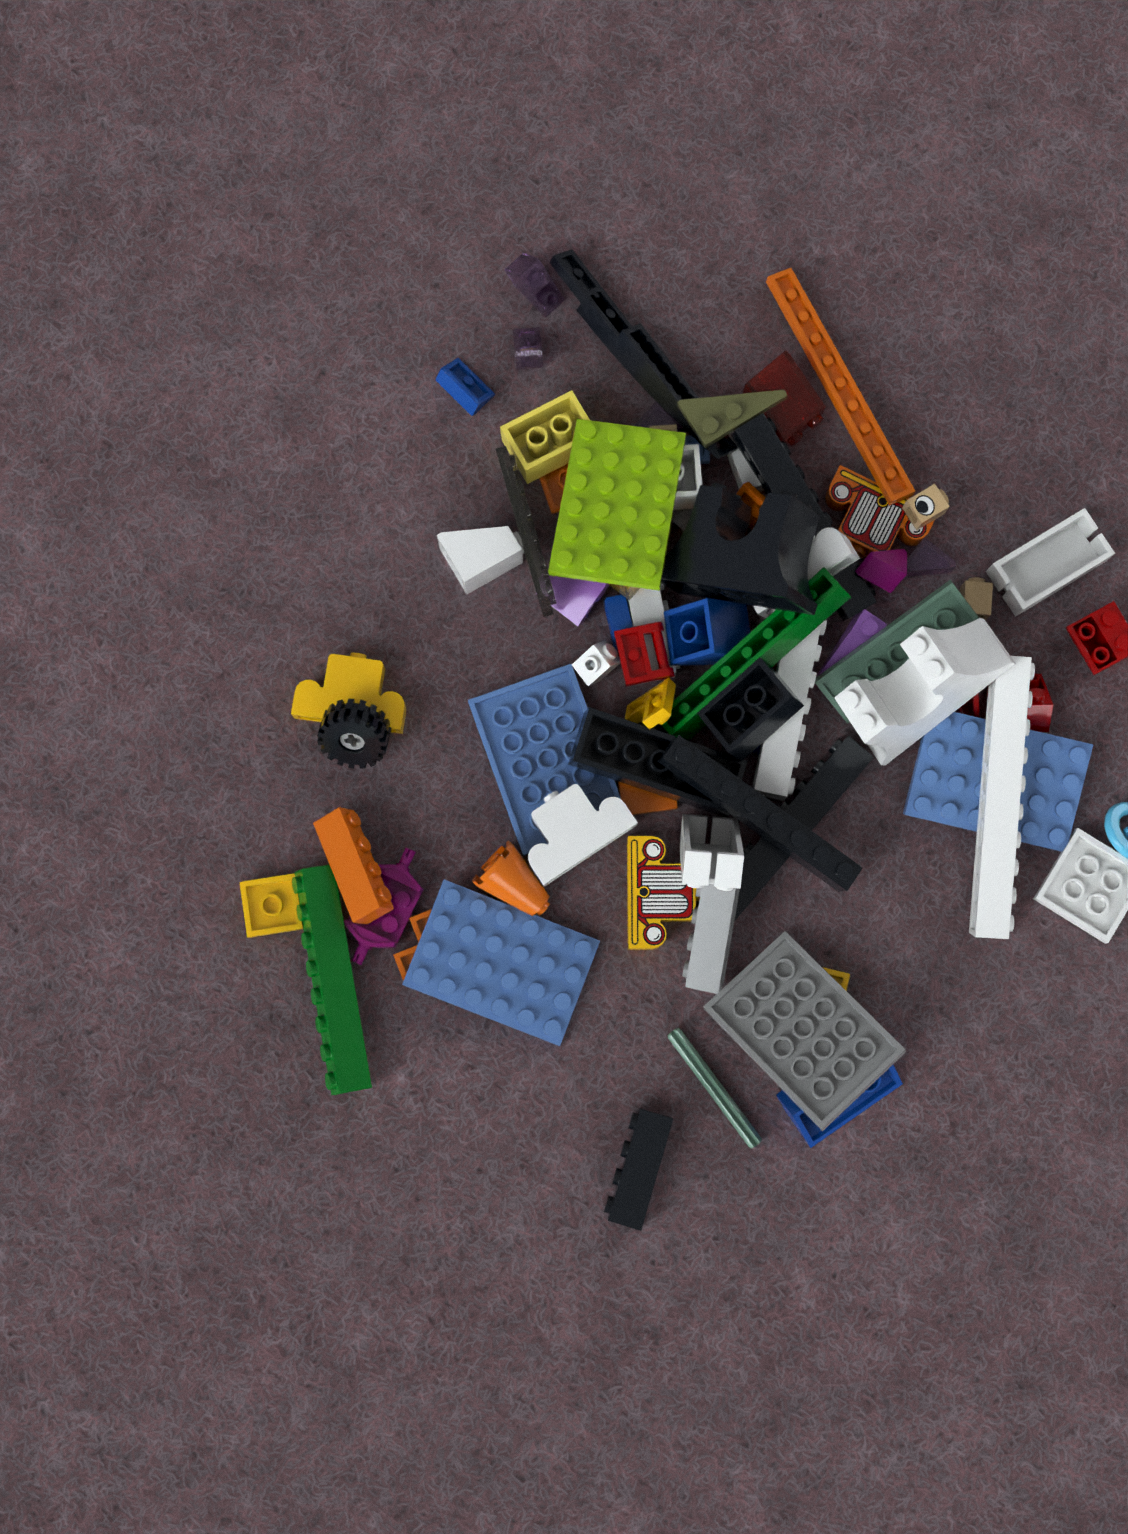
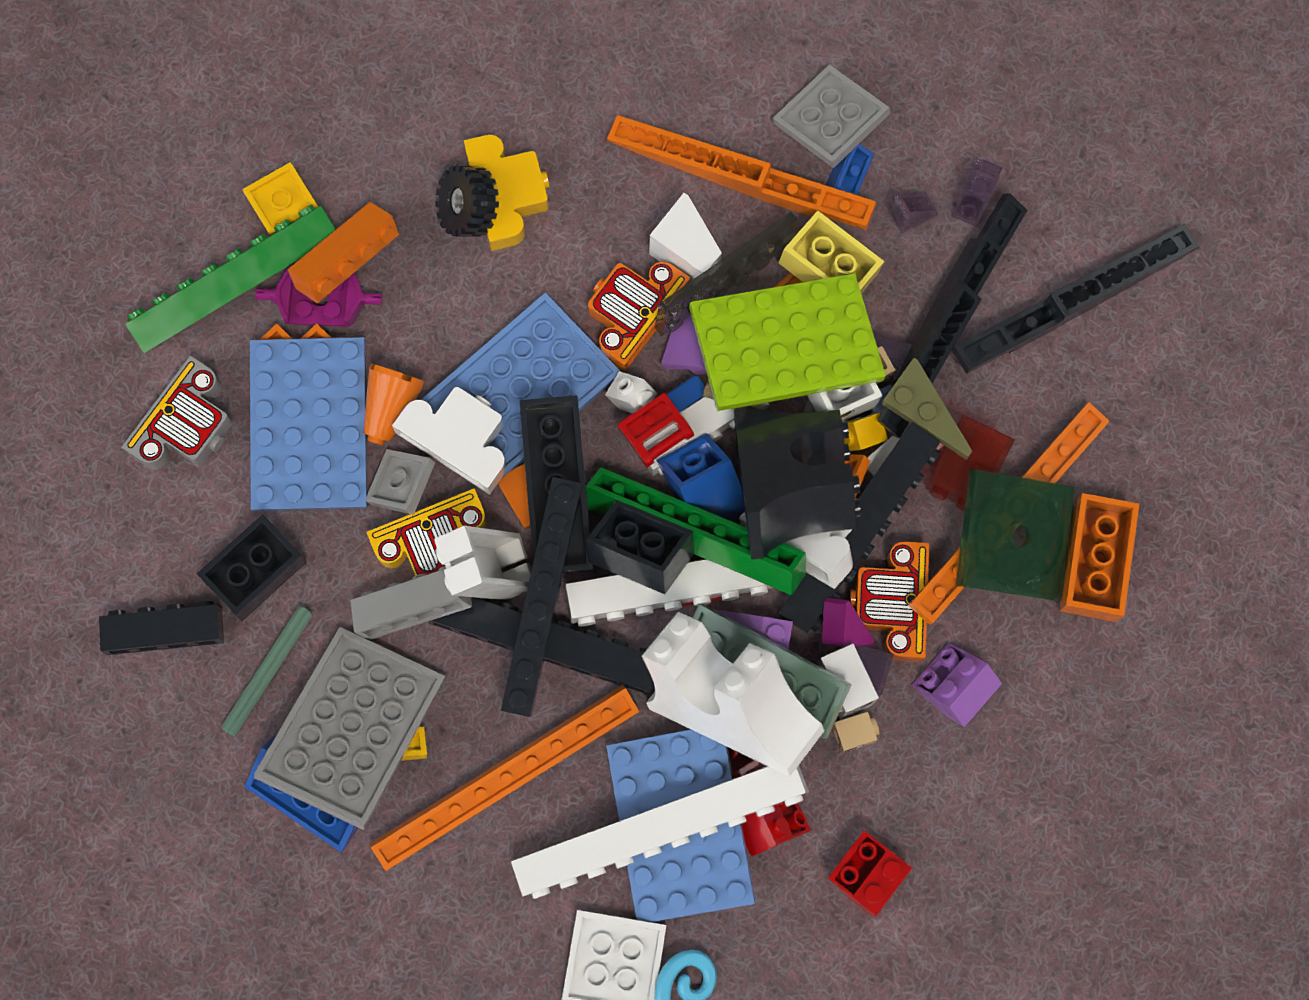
camera: 65 degrees right, 5 degrees down
(410, 377) = (831, 116): none -> light grey plate
(428, 480) = (741, 173): none -> orange slope
(449, 1077) = (181, 420): none -> brick
(516, 627) = (630, 307): none -> brick
(592, 900) = (400, 481): none -> light grey plate
(618, 1064) = (252, 567): none -> black brick
(653, 706) = (607, 458): yellow plate -> none
(670, 246) = (1075, 299): none -> black slope
(718, 471) = (865, 432): none -> yellow brick
(839, 395) = (987, 550): none -> clear green piece
(895, 915) = (503, 778): none -> orange plate
(908, 329) = (1099, 557): none -> orange brick
(926, 506) = (923, 640): tan brick -> none
(926, 578) = (849, 667): none -> white brick
(971, 496) = (957, 684): none -> medium lavender slope
(1049, 562) = (925, 790): white piece -> none

